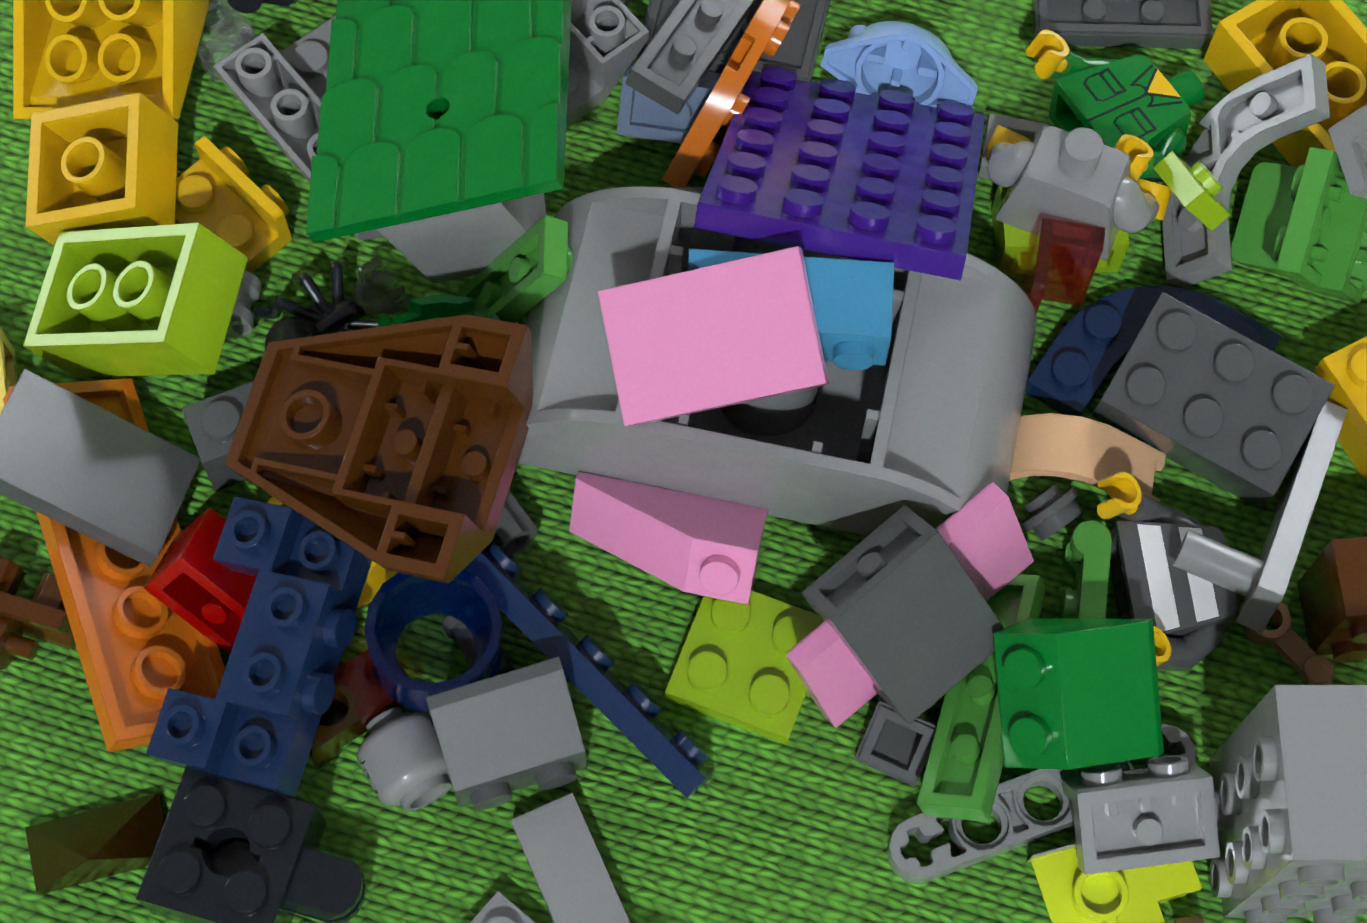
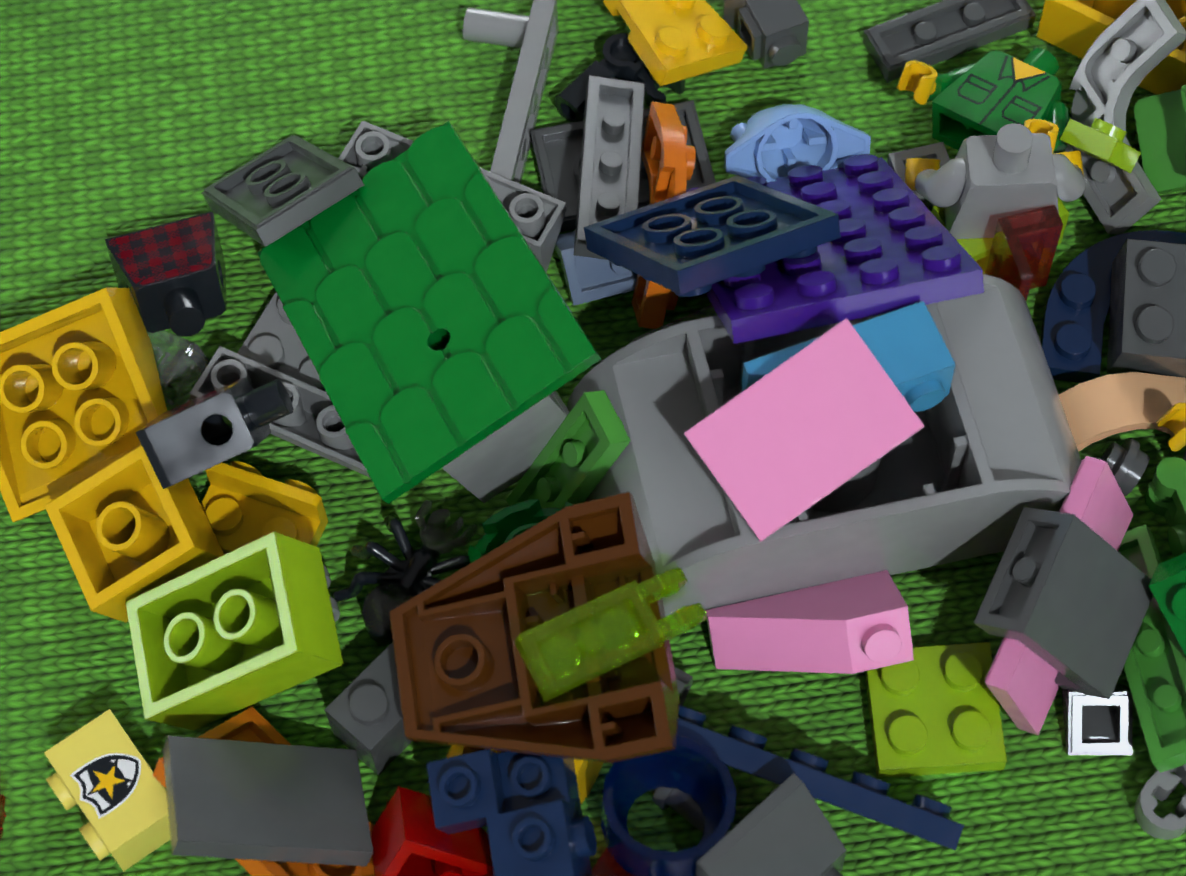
camera: 20 degrees left, 5 degrees down
(203, 105) = (198, 438): none -> black torso
(442, 448) = (604, 634): none -> clear neon green hinge
(742, 116) = (712, 235): none -> dark blue plate

